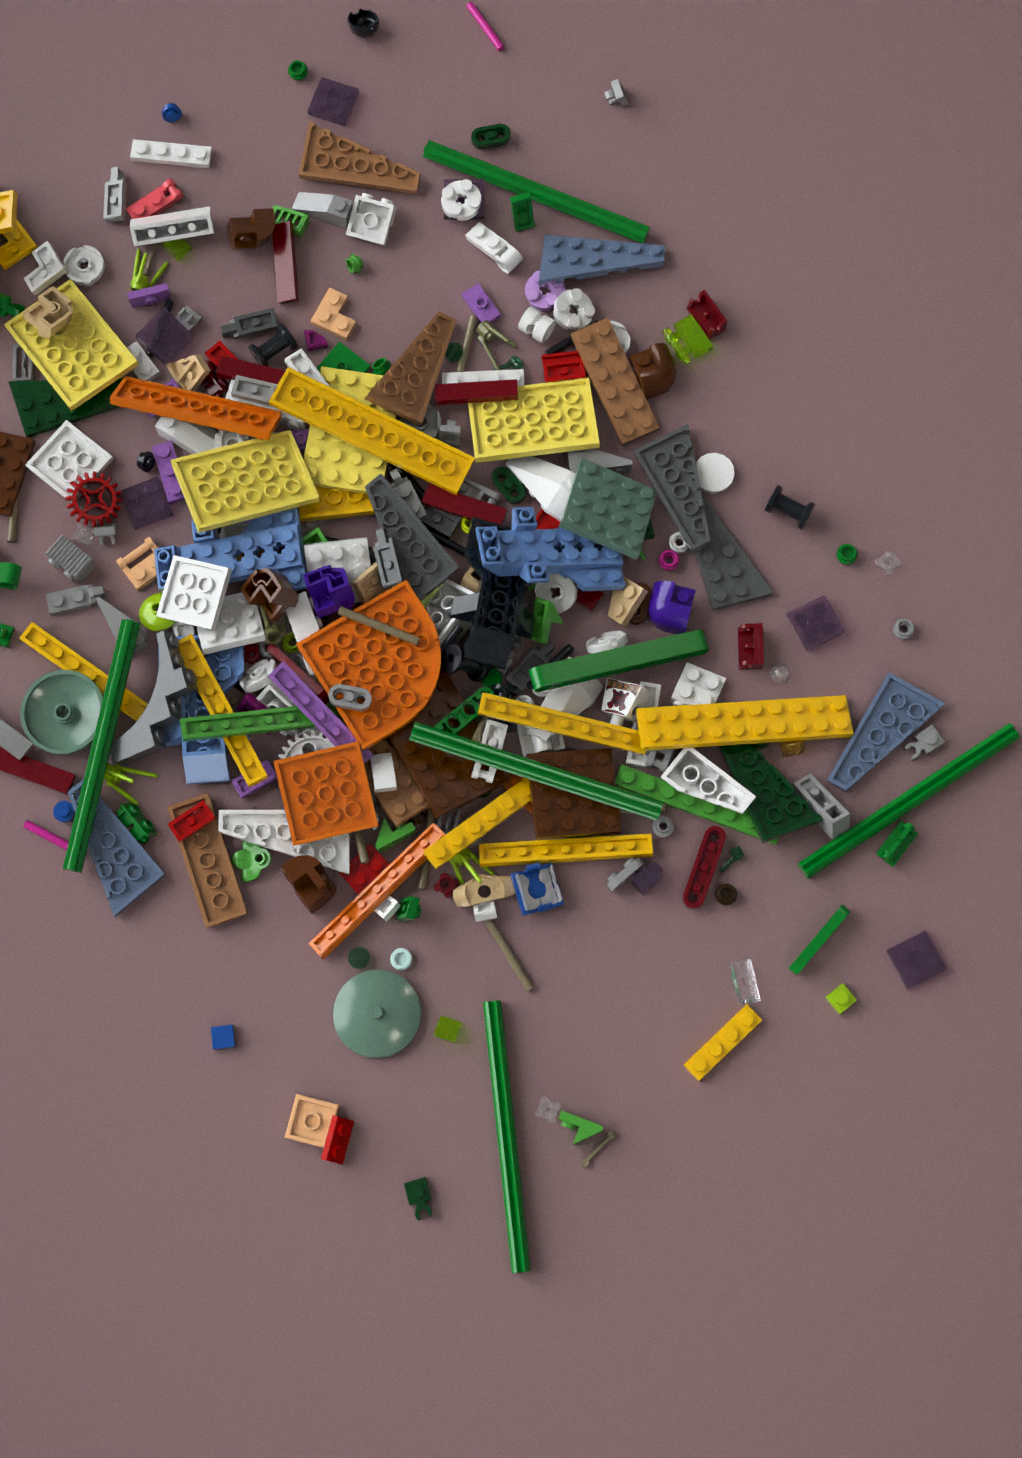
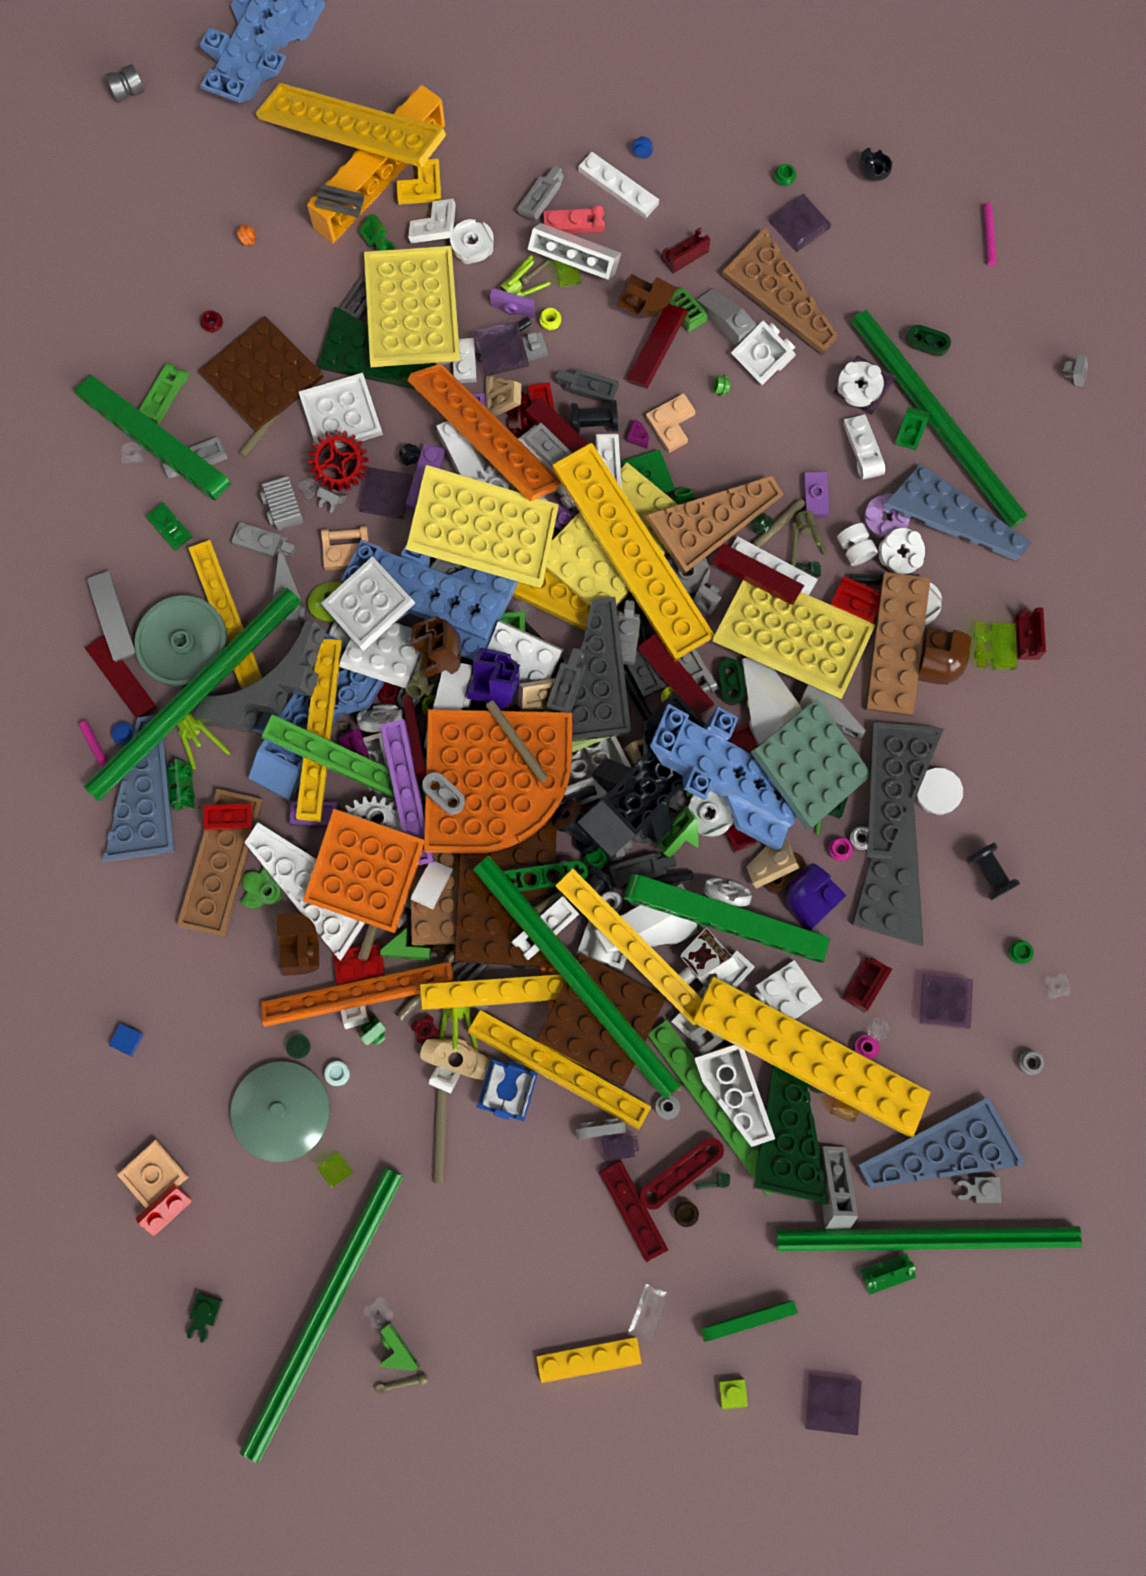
camera: 30 degrees right, 0 degrees up
(50, 312) = (409, 265): tan brick -> none
(187, 285) = (547, 314): none -> neon yellow plate
(259, 175) = (686, 251): none -> dark red hinge
(686, 917) = (634, 1213): none -> dark red tile
(772, 691) = (874, 1046): none -> dark pink plate

